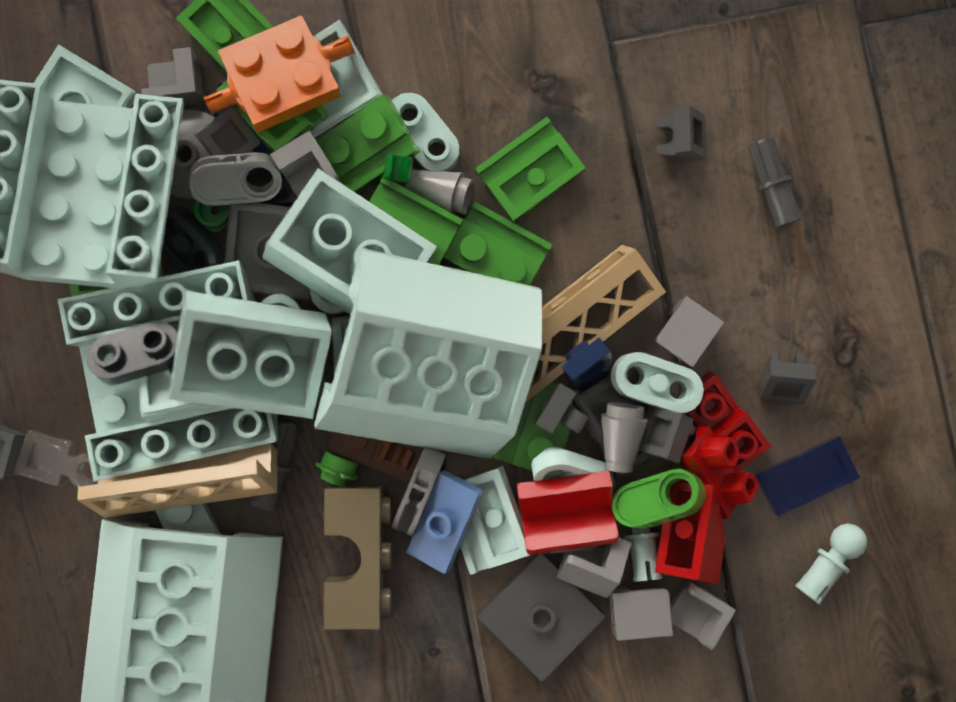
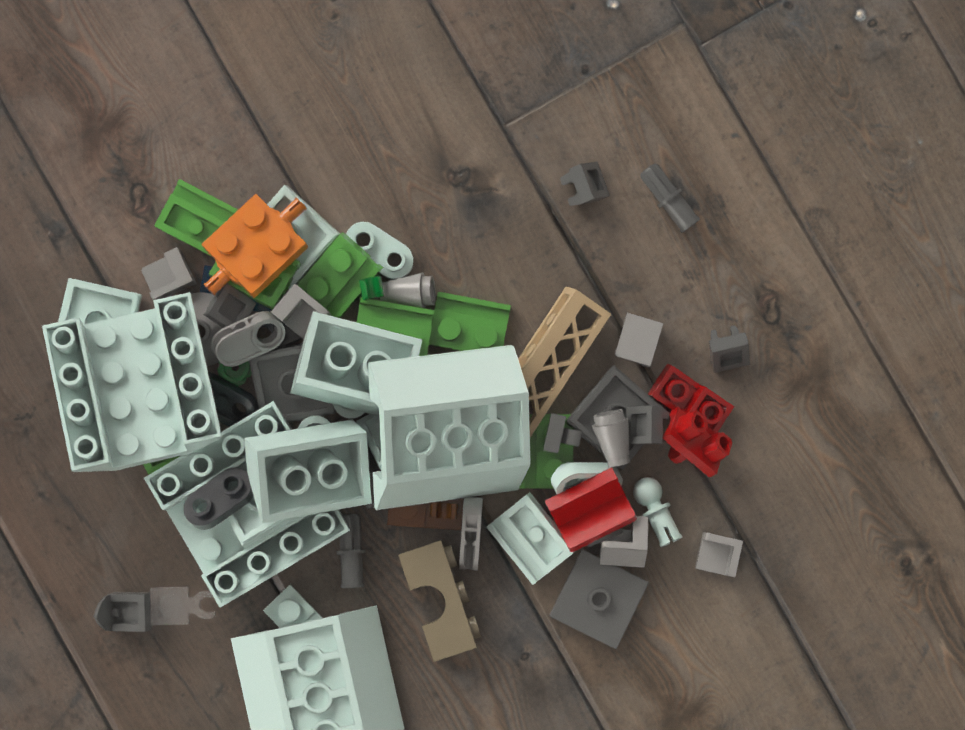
camera: 15 degrees left, 0 degrees up
(187, 483) = (289, 587): tan fence -> none
(337, 468) = (401, 537): bright green plate -> none
(444, 521) = (499, 550): medium blue plate -> none
(530, 169) = (473, 252): bright green plate -> none
(587, 363) = (567, 391): dark blue plate -> none
(640, 613) = (673, 568): light grey panel -> none
(648, 500) = (650, 482): bright green piece -> none
(655, 380) = (625, 387): light aqua plate -> none
(694, 544) = (692, 495): red slope -> none
(807, 475) = (771, 420): clear blue tile -> none
(846, 543) = (817, 462): light aqua pin -> none

